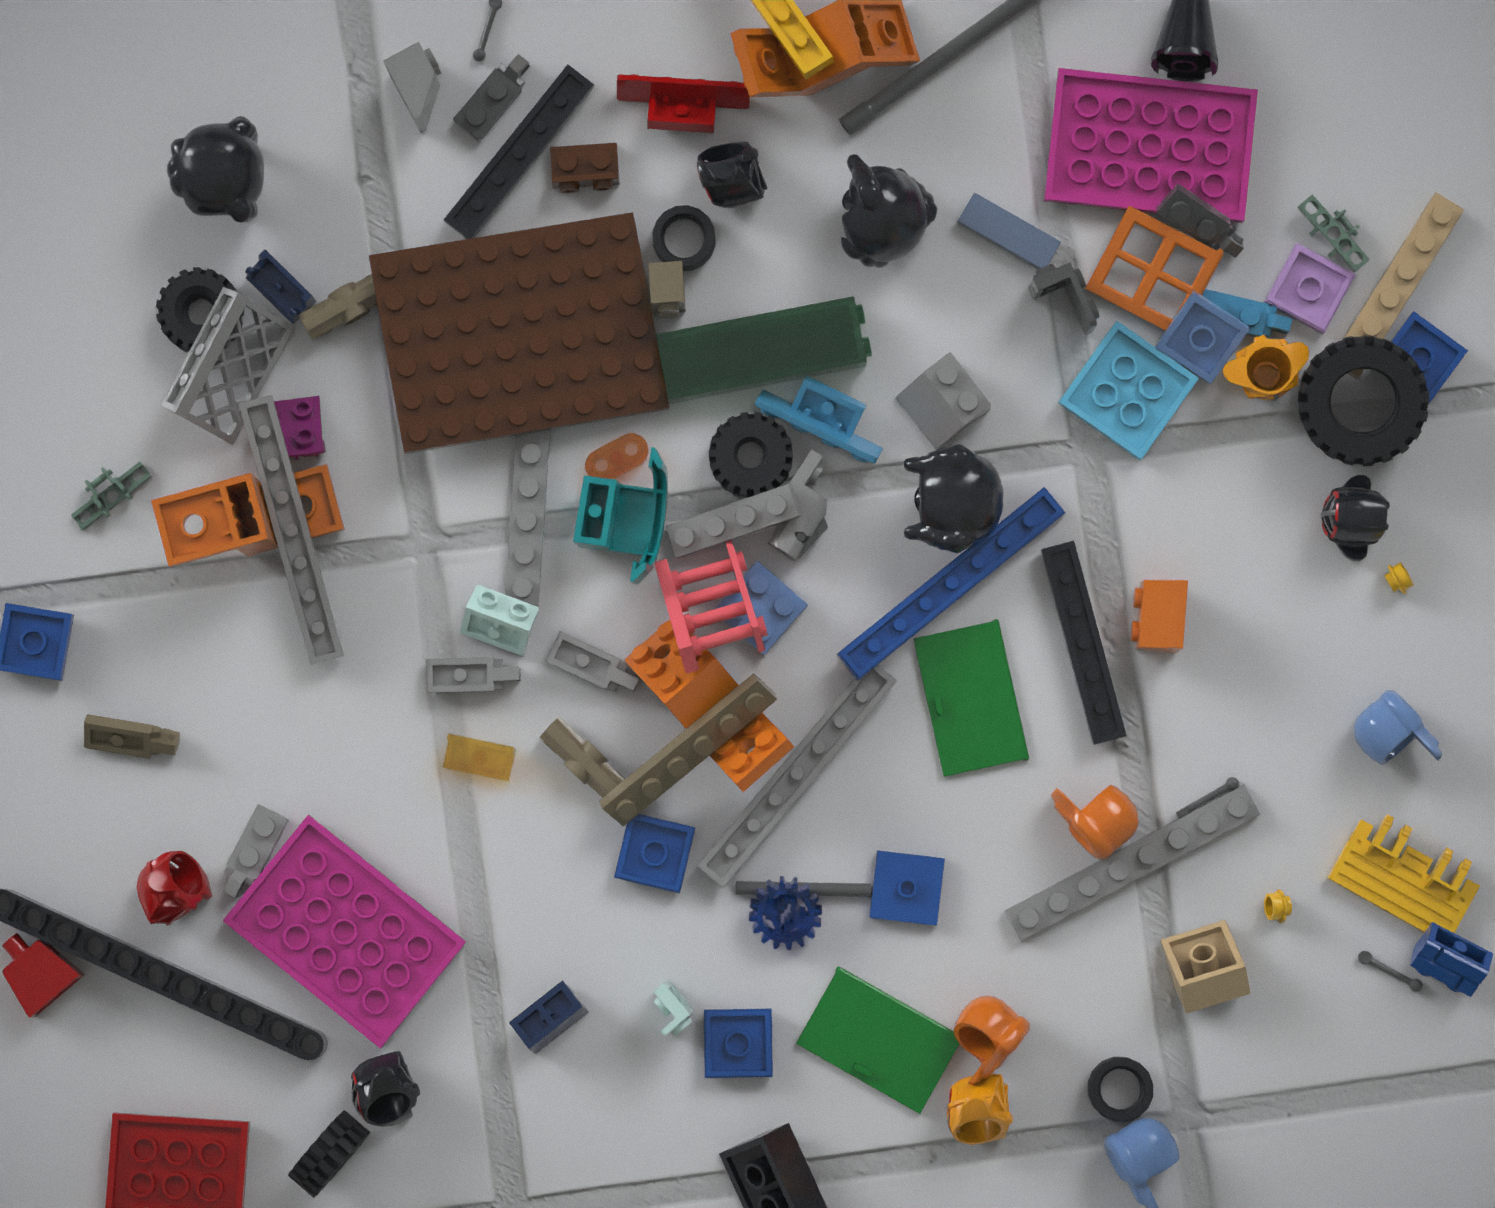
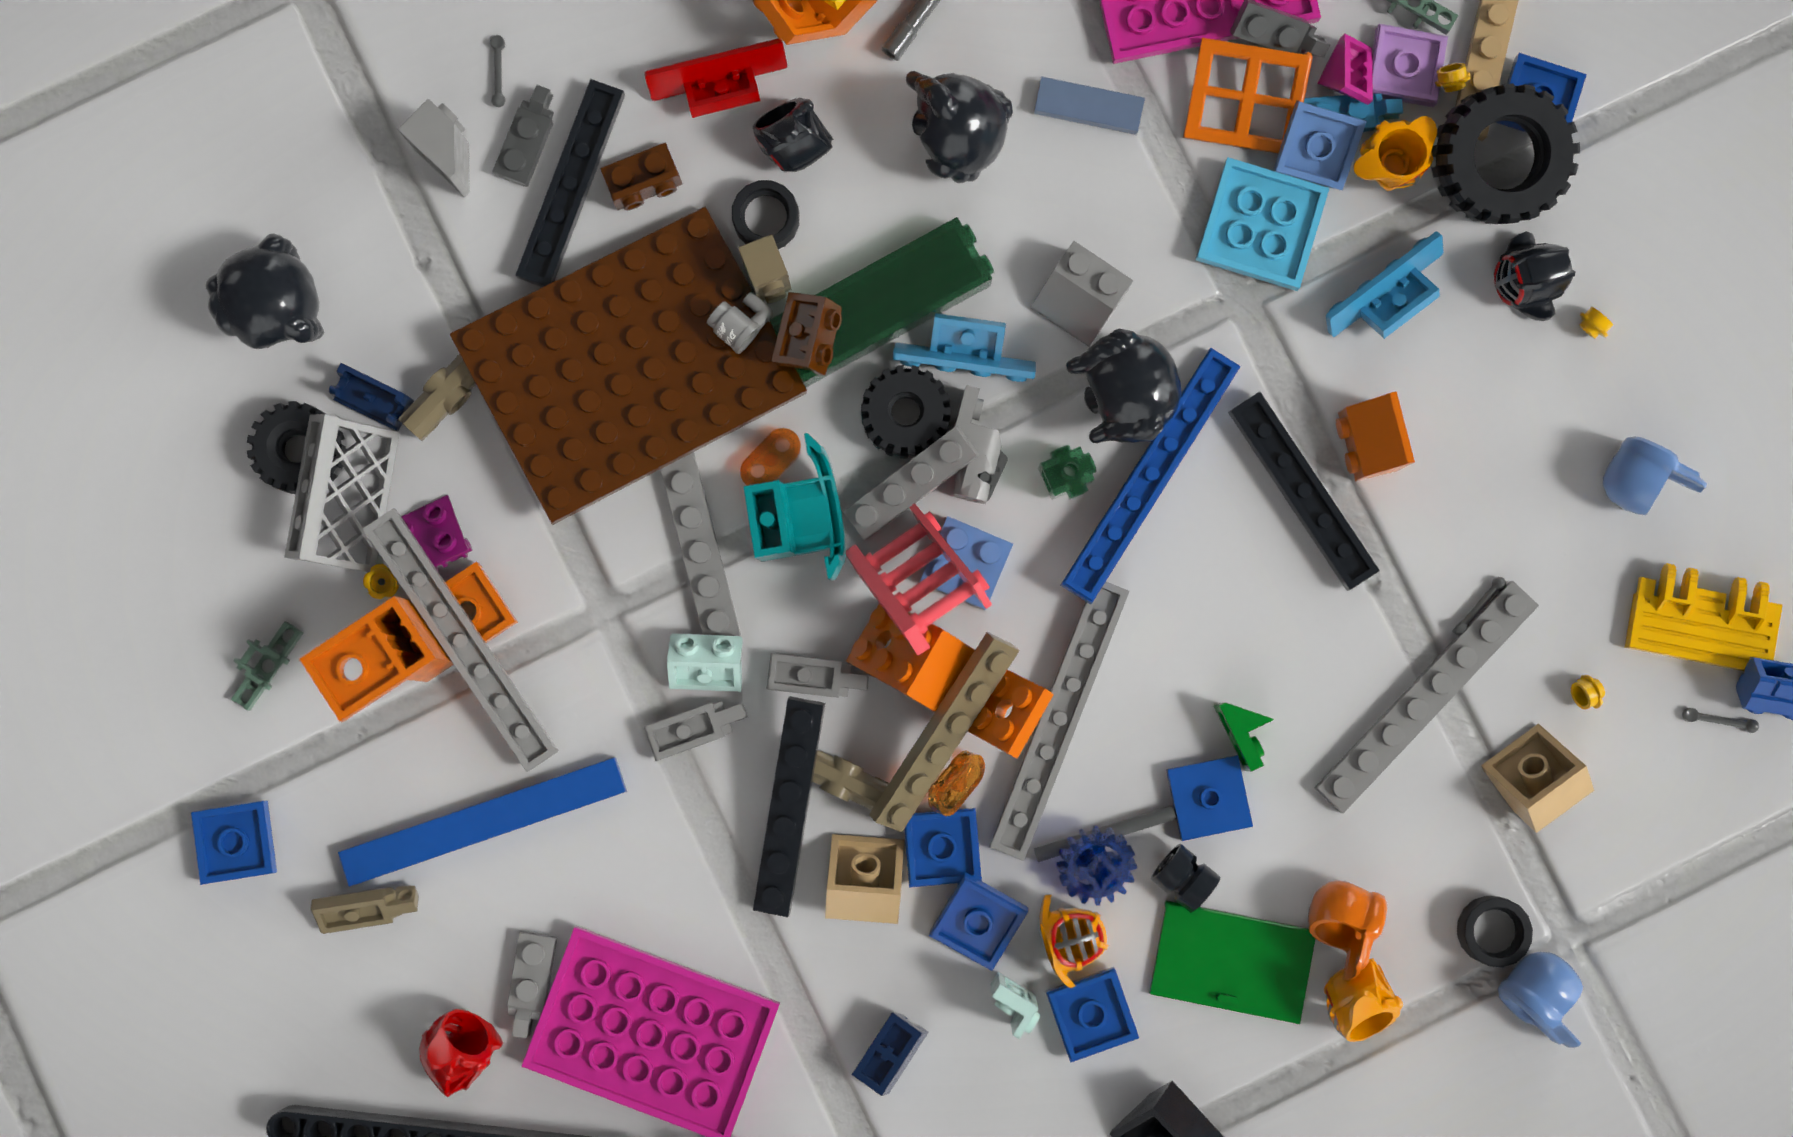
camera: 25 degrees left, 0 degrees up
(231, 462) = (376, 590): none -> yellow plate
(257, 696) = (482, 821): none -> blue tile
(479, 757) = (730, 809): clear yellow panel -> none
(531, 771) = (789, 806): none -> black plate
(576, 857) = (864, 879): none -> tan slope
(623, 330) = (736, 327): none -> light grey piece
(665, 928) = (978, 921): none -> blue plate
(685, 357) = (807, 333): none -> reddish brown bracket
(685, 799) = (956, 783): none -> clear orange plate
(741, 968) = (1071, 938): none -> light orange piece
(860, 950) = (1187, 879): none -> black wheel
(867, 566) = (1060, 483): none -> clear green brick
(955, 829) = (1237, 724): none -> green slope
(971, 698) = (1210, 583): green container -> none
(1052, 278) = (1175, 136): dark grey bracket -> none
(1103, 823) = (1387, 667): orange piece -> none
(1224, 492) = (1393, 294): none -> dark azure bracket
(1255, 277) = (1350, 70): none -> dark pink slope
(1345, 313) = (1452, 77): none -> yellow plate

